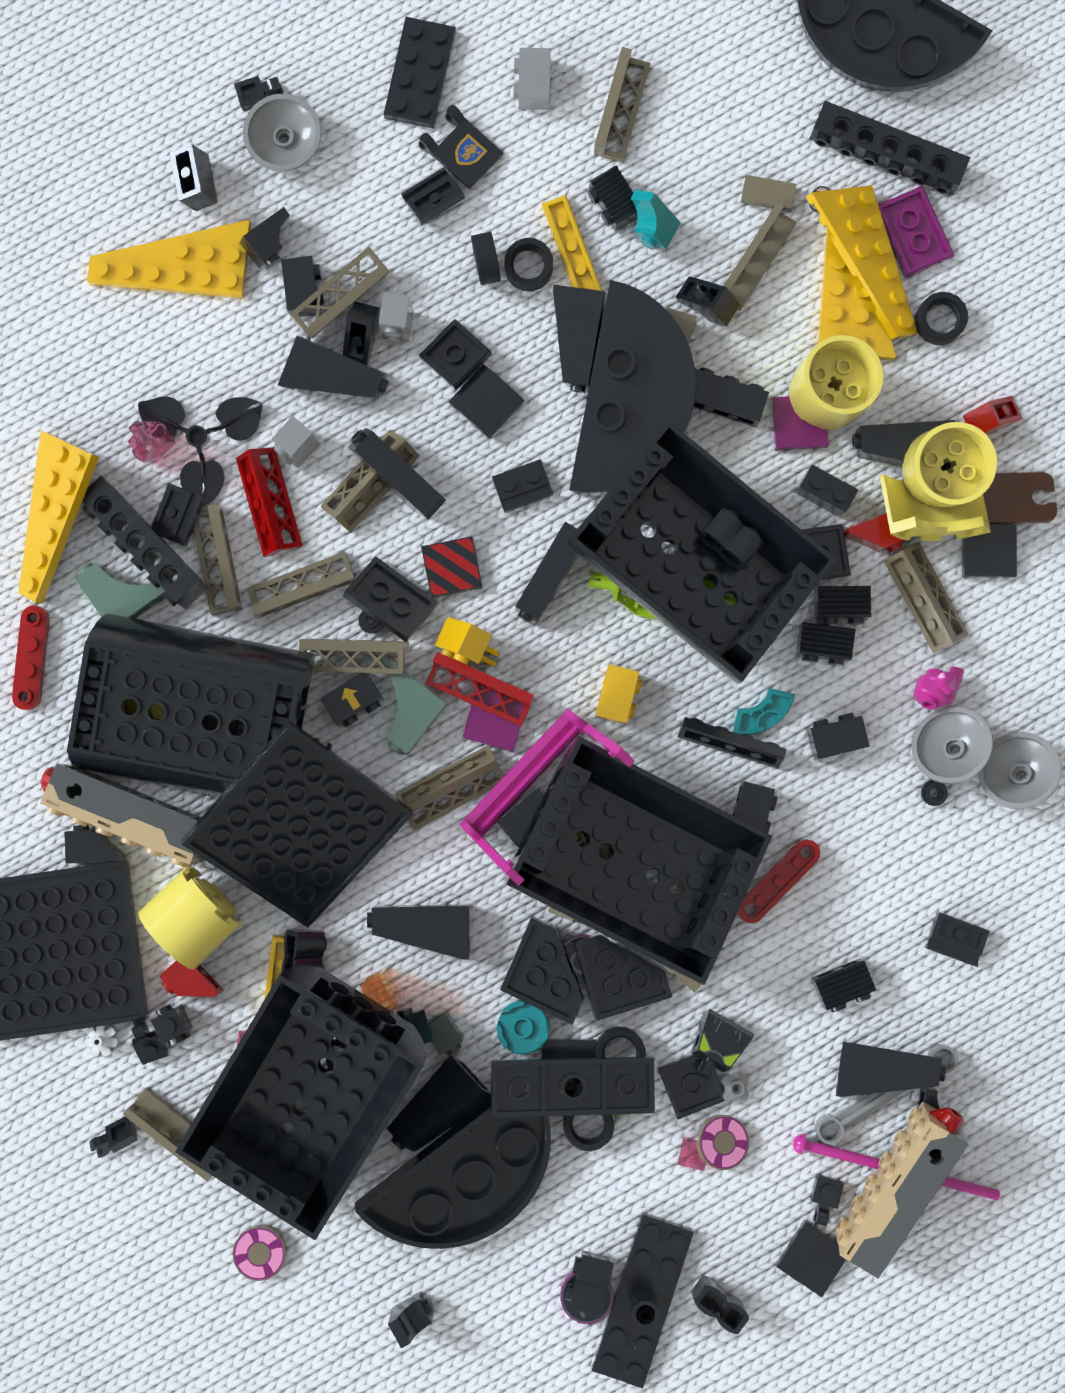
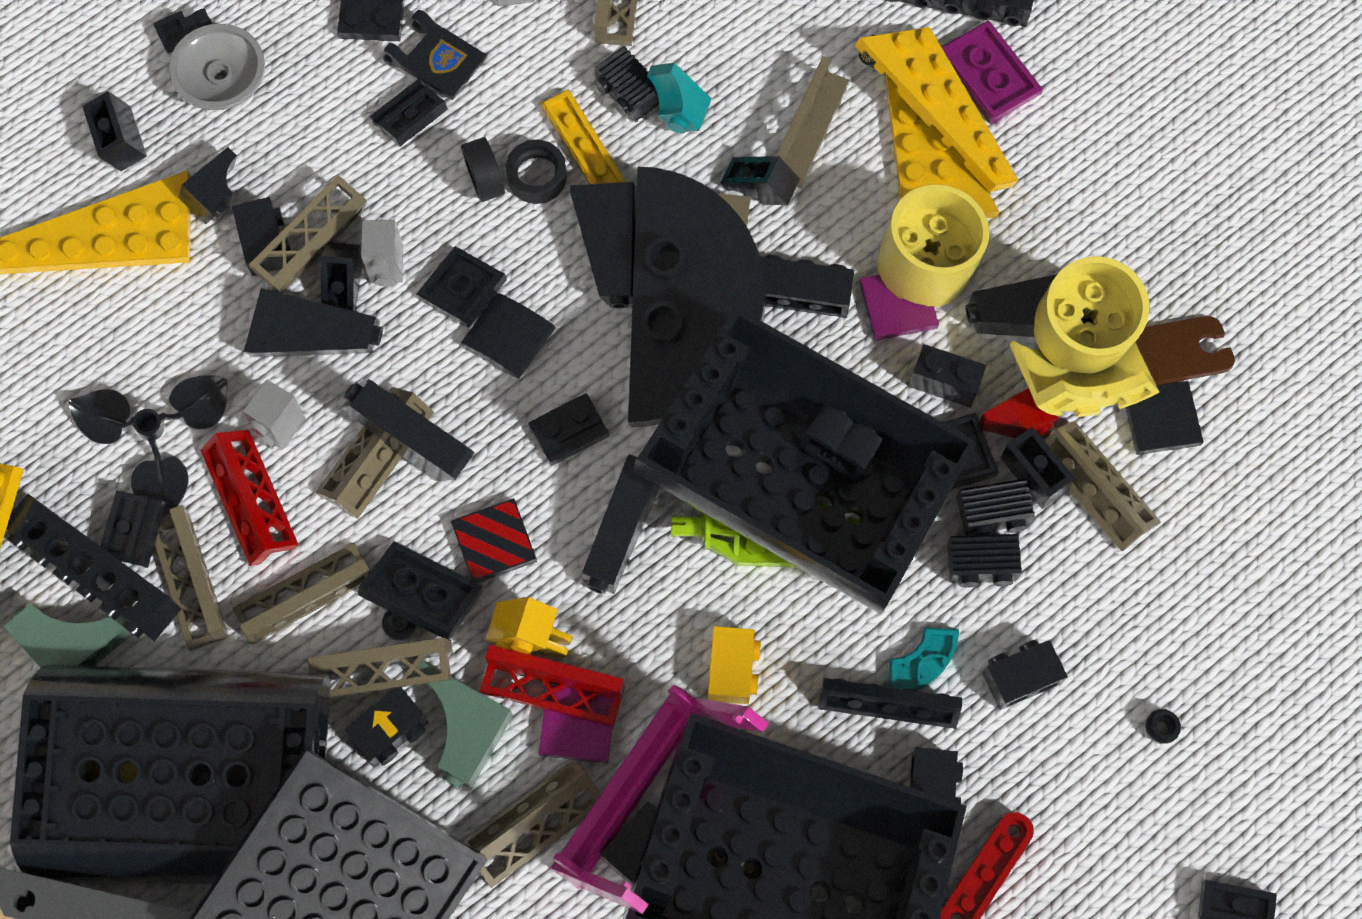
camera: 15 degrees left, 15 degrees down
(150, 440) = (88, 442): clear pink arch -> none
(768, 192) = (806, 53): dark tan tile -> none
(882, 576) = (1033, 459): none -> black brick
(938, 687) = (1137, 590): dark pink head -> none
(942, 733) = (1161, 645): light grey dish -> none
(956, 305) = (1049, 139): black tyre -> none
(994, 415) = (1137, 253): red slope -> none
(1016, 755) = (1259, 660): light grey dish -> none

